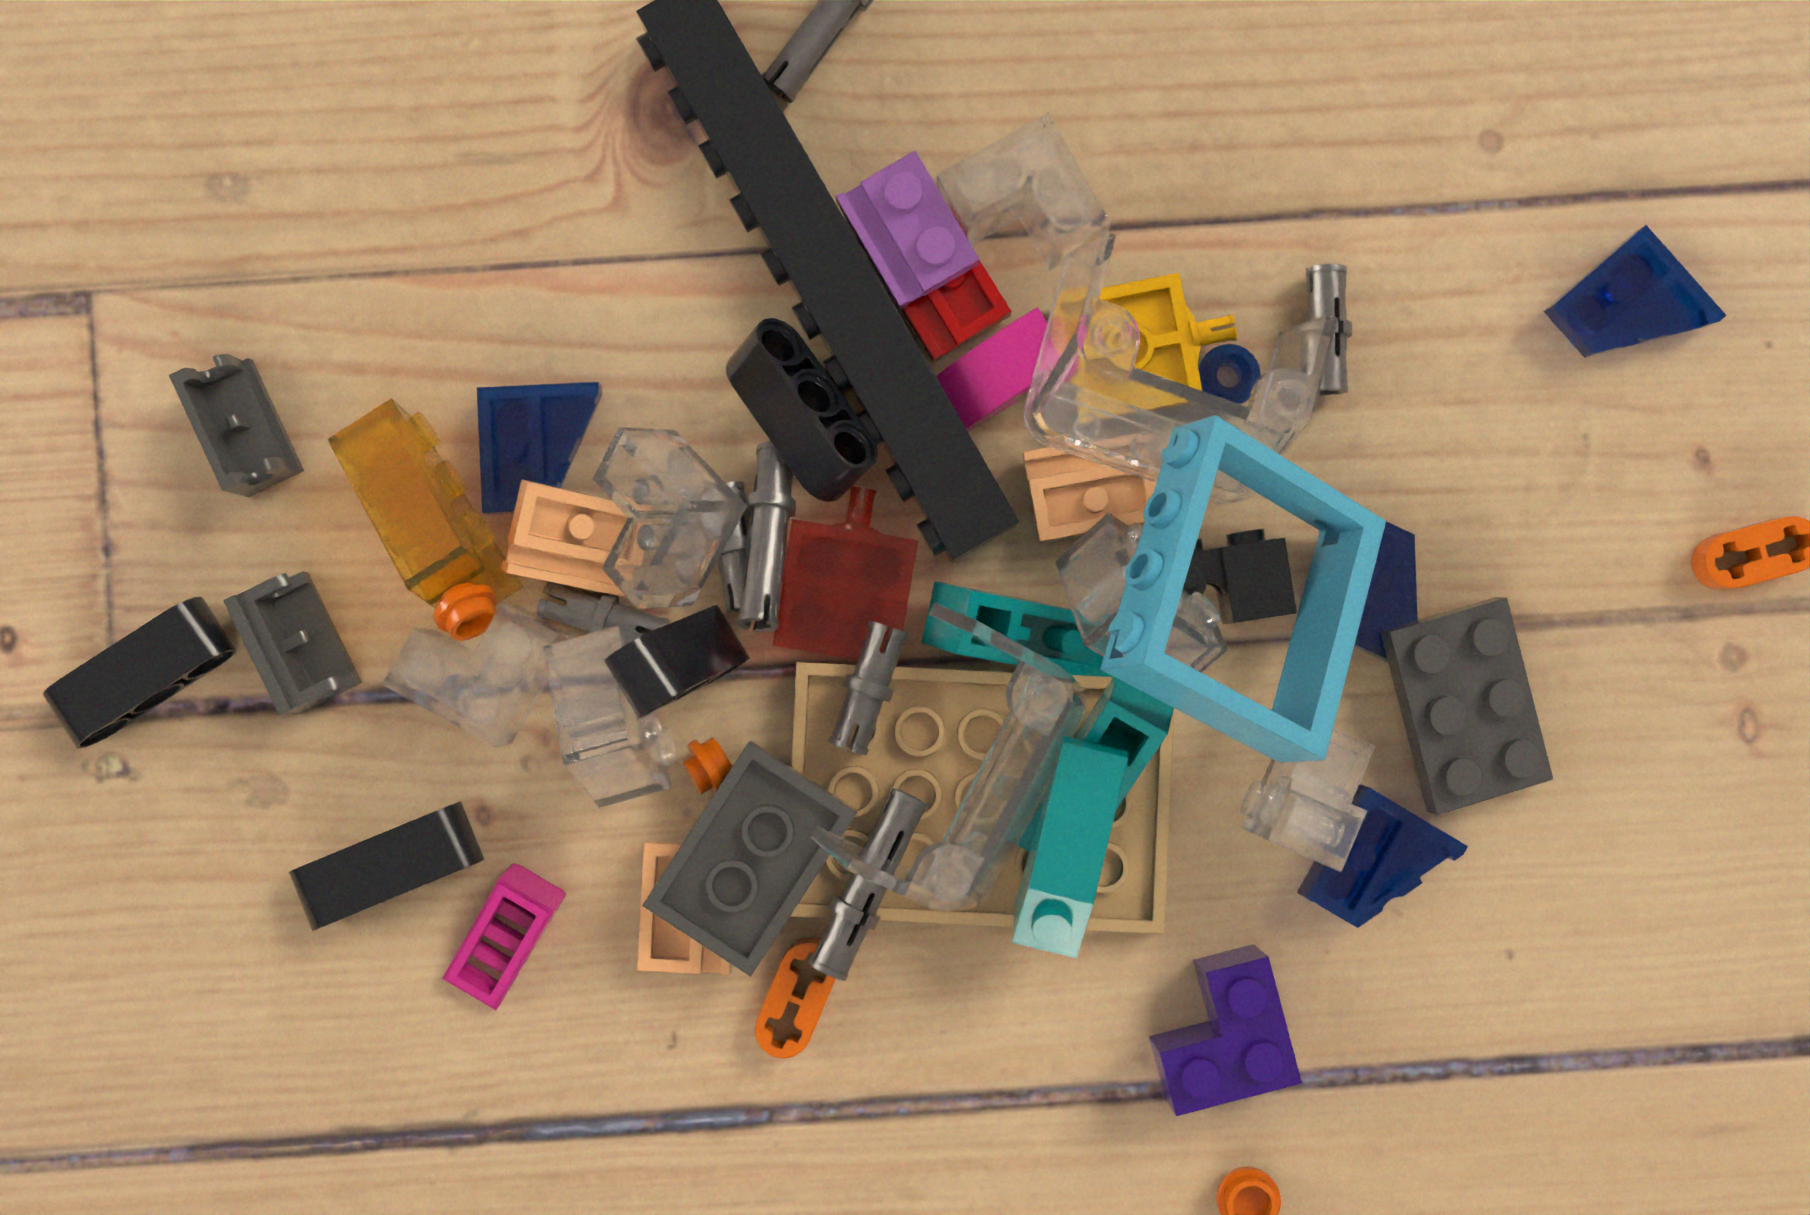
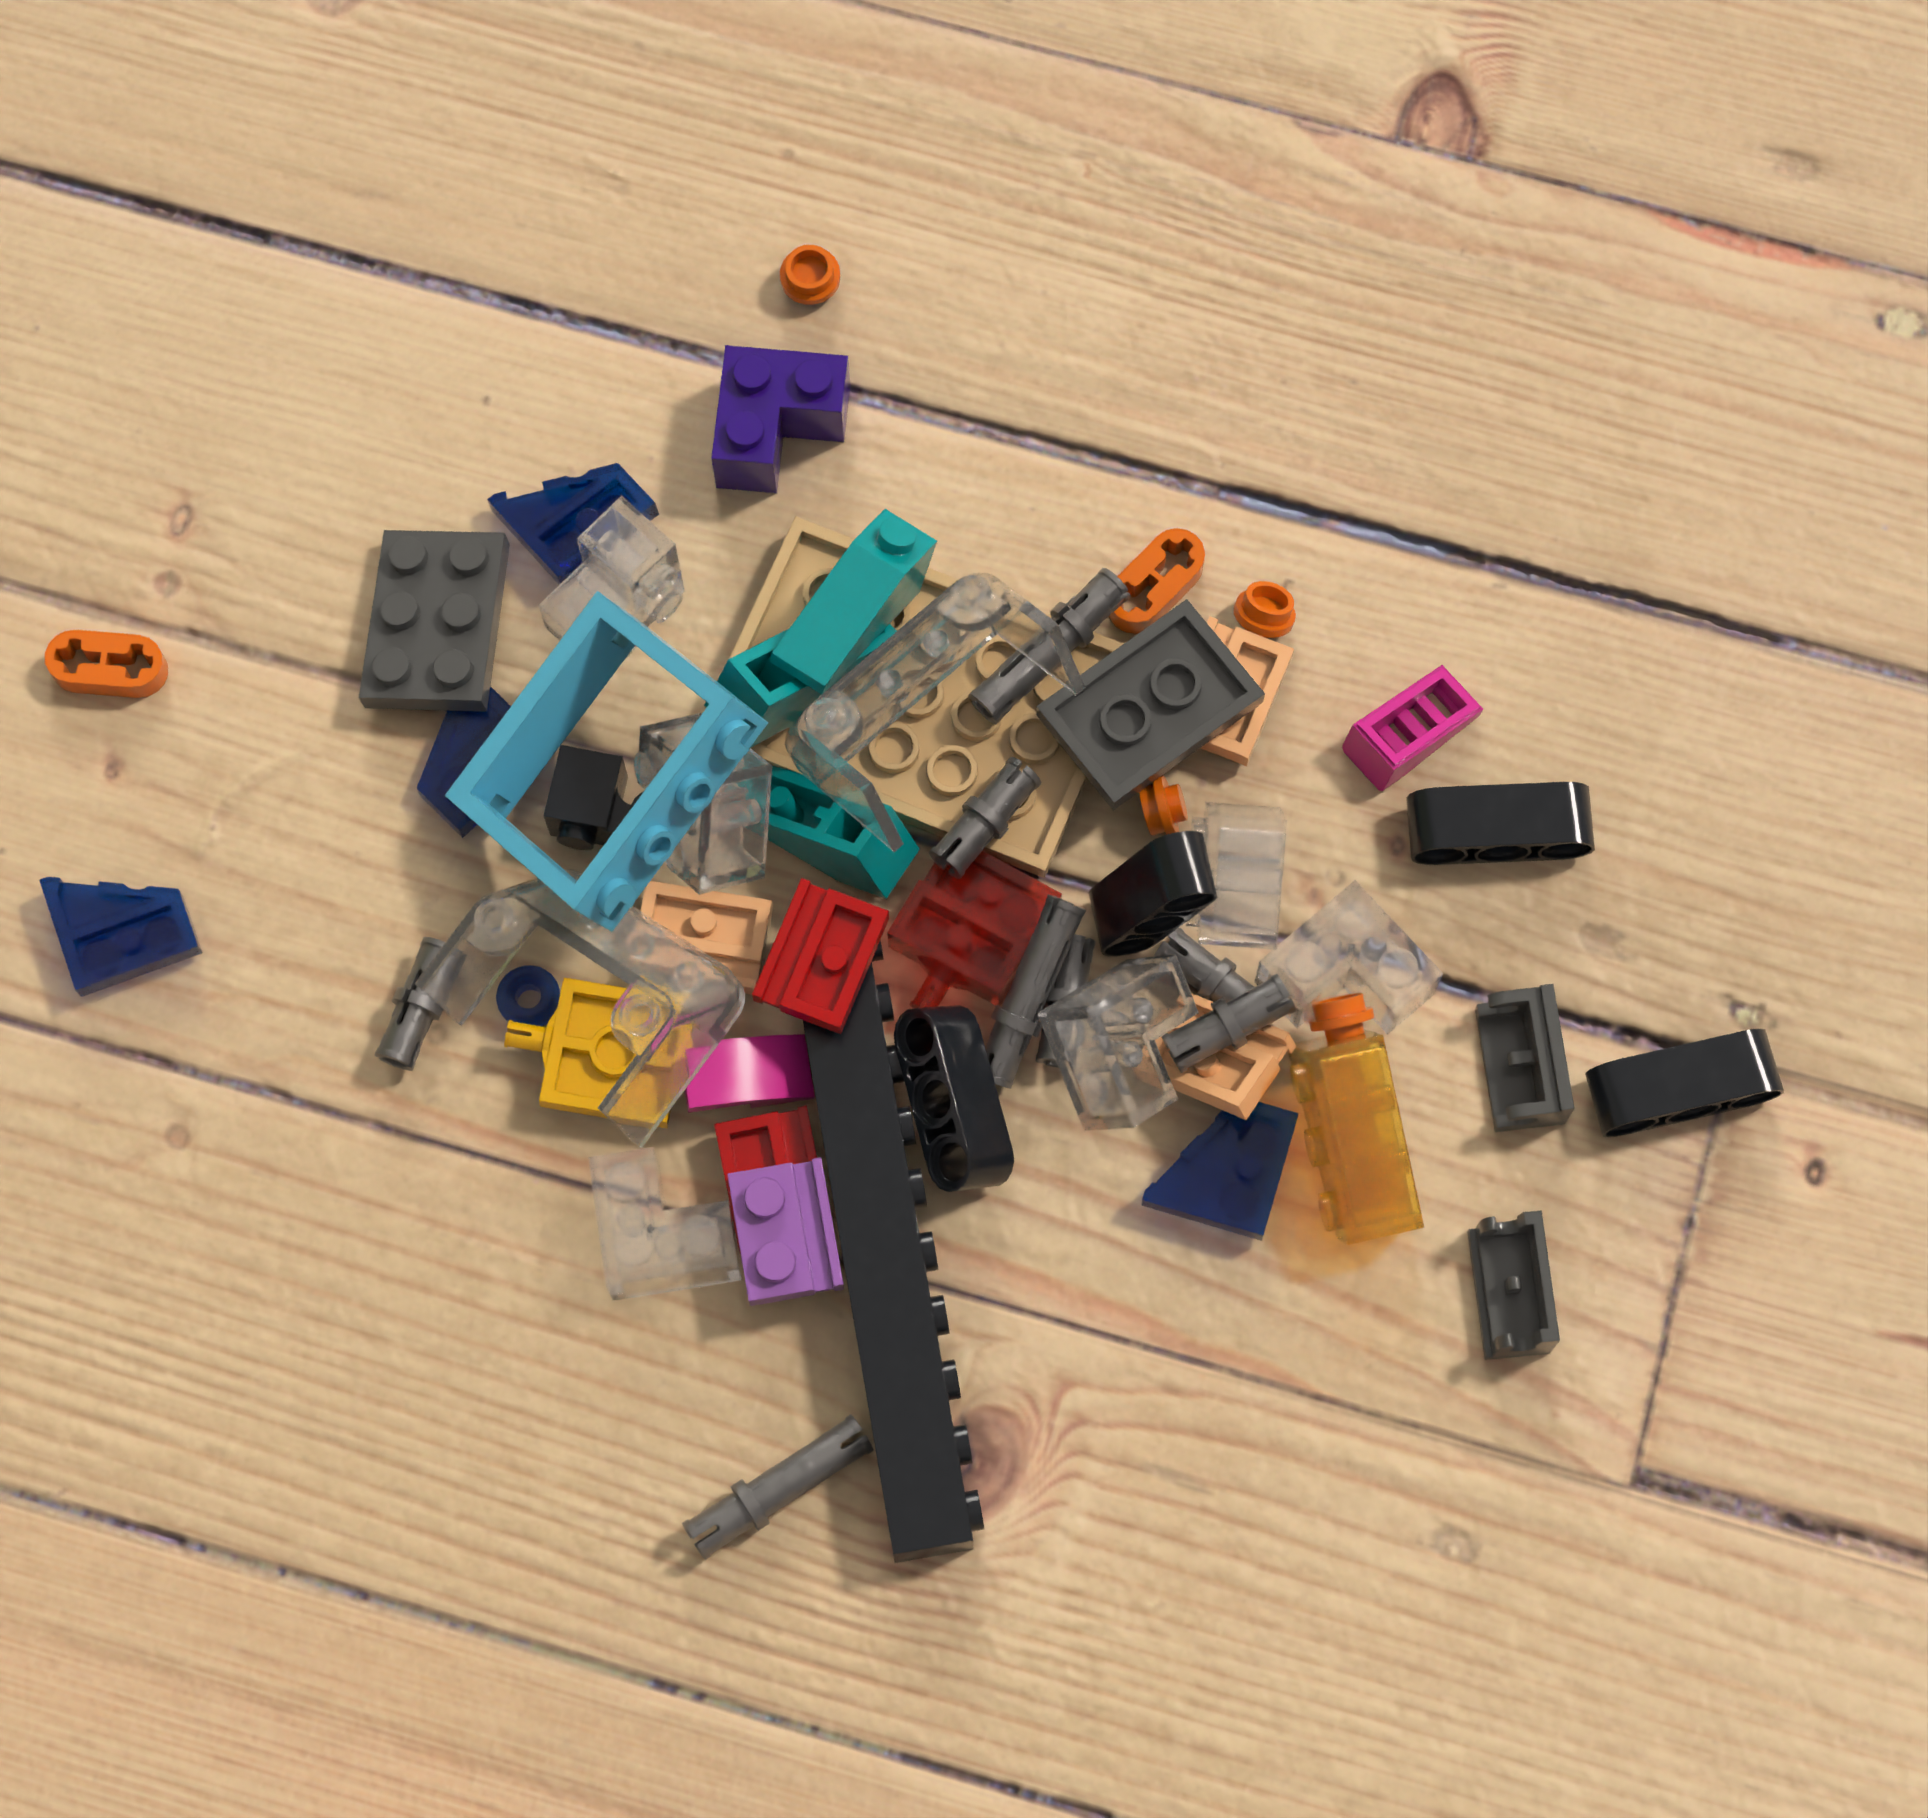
camera: 160 degrees left, 15 degrees down
(564, 560) = (1229, 1023): none -> flat silver pin
(679, 1002) = (1265, 609): none -> orange plate
(969, 485) = (821, 956): none -> red plate

